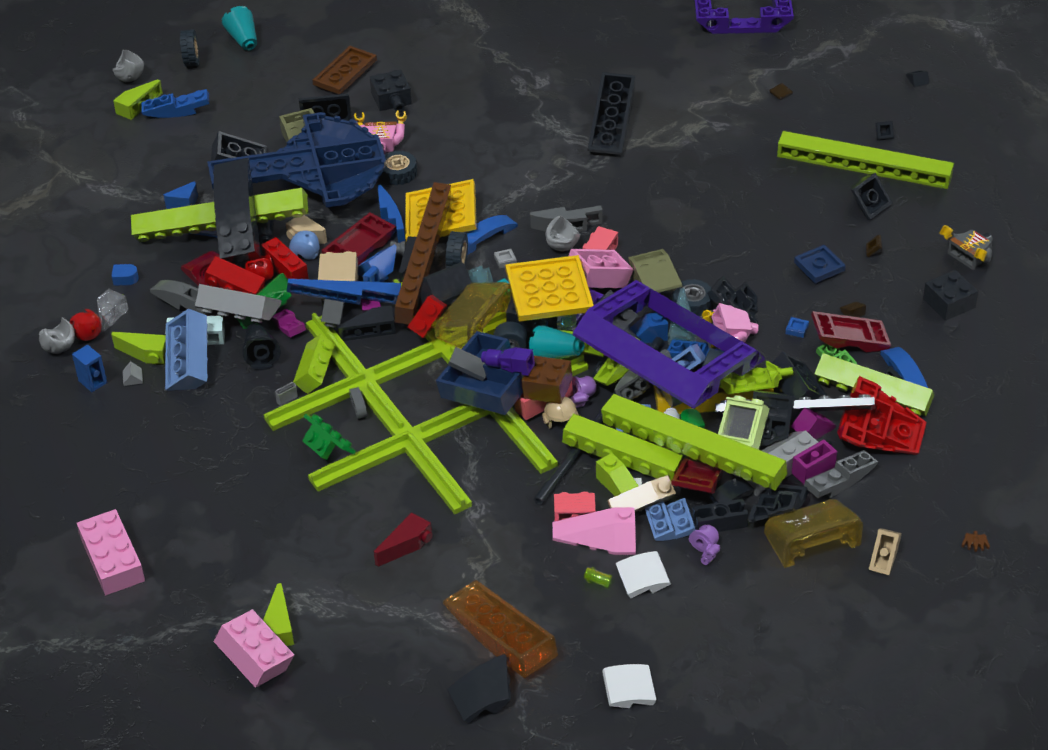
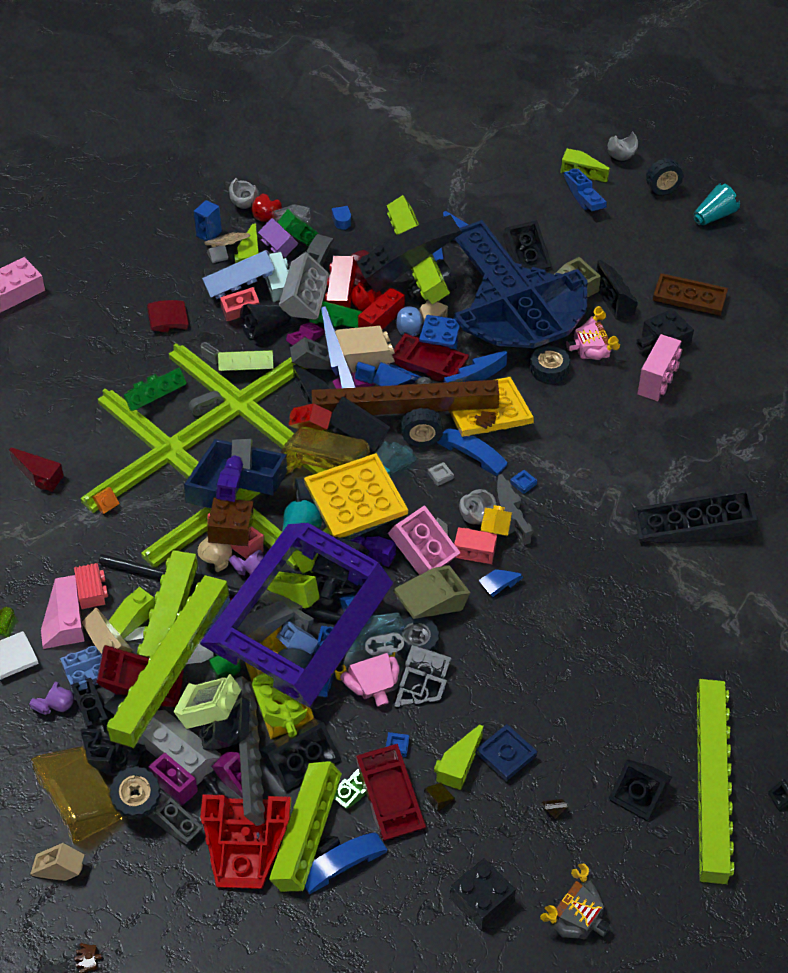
camera: 75 degrees right, 5 degrees up
(125, 351) = (226, 239): none -> tan axle
(134, 300) = (297, 227): none -> green slope
(140, 319) = (278, 238): none -> medium lavender brick
(213, 422) = (167, 315): none -> dark red slope
(230, 359) = (232, 303): none -> coral brick
(334, 223) = (440, 331): none -> blue bracket
(436, 99) = (659, 367): none -> bright pink brick
(466, 207) = (486, 419): none -> reddish brown piece
(466, 487) = (105, 500): none -> orange plate
(531, 206) = (523, 481): none -> blue tile
(583, 223) = (496, 520): none -> yellow brick
(642, 241) = (498, 580): none -> blue slope
(703, 306) = (384, 648): none -> beam
(822, 289) = (458, 759): none -> lime slope
(833, 478) = (135, 805): none -> black wheel

